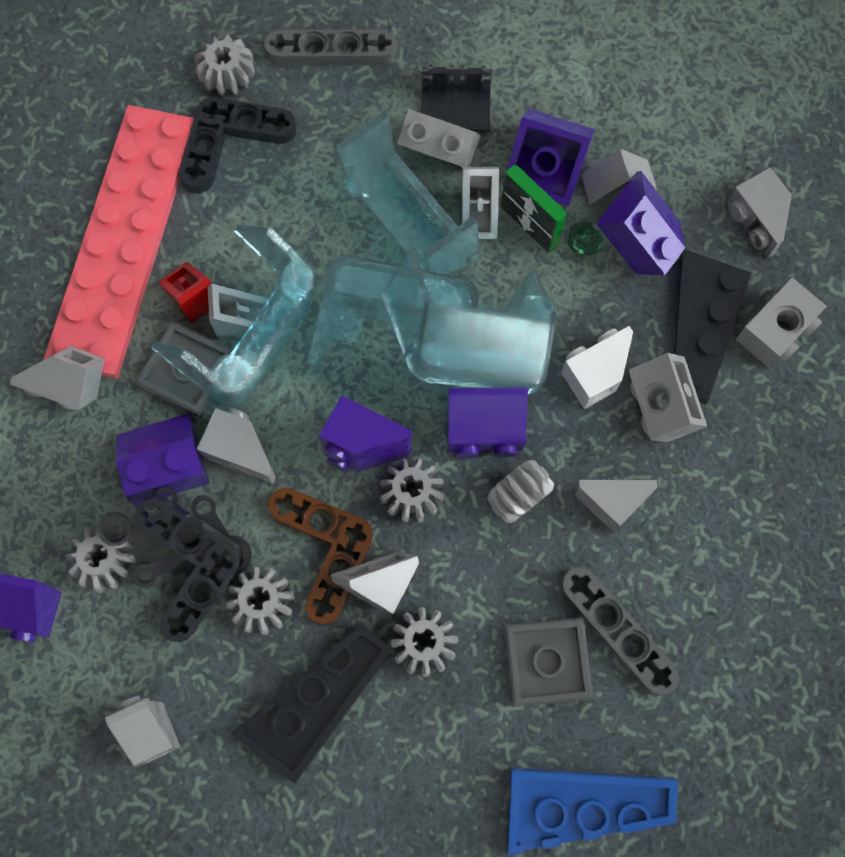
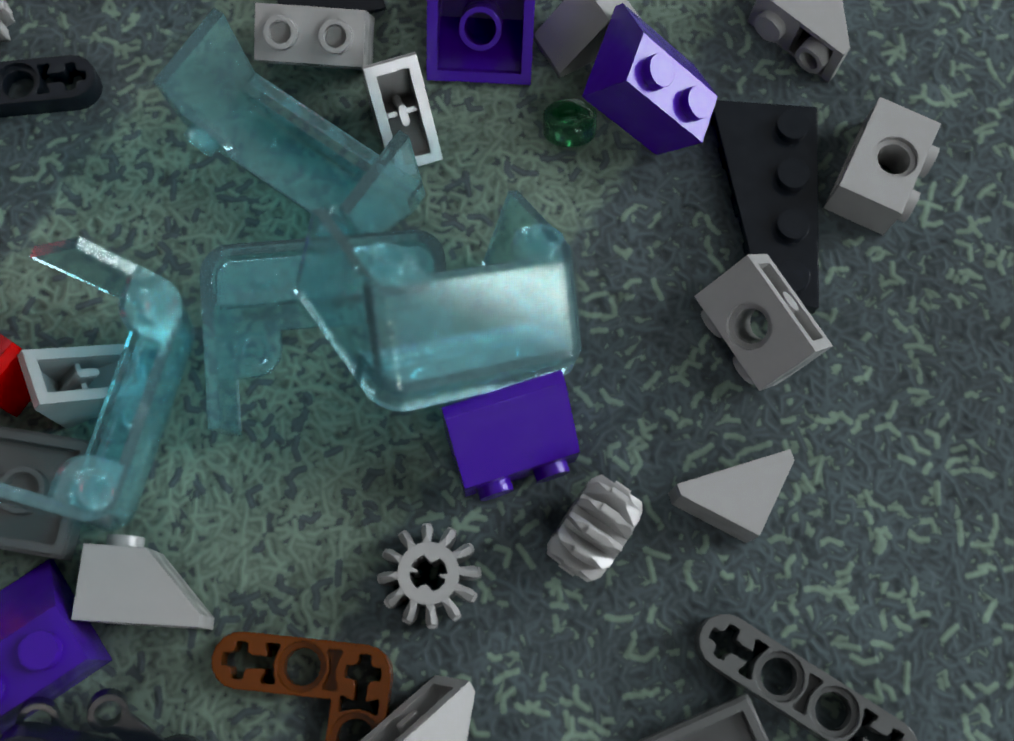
camera: 20 degrees left, 0 degrees up
(362, 438) = (326, 521): dark purple slope -> none
(532, 208) = (482, 99): tile -> none
(599, 369) = (651, 306): white slope -> none

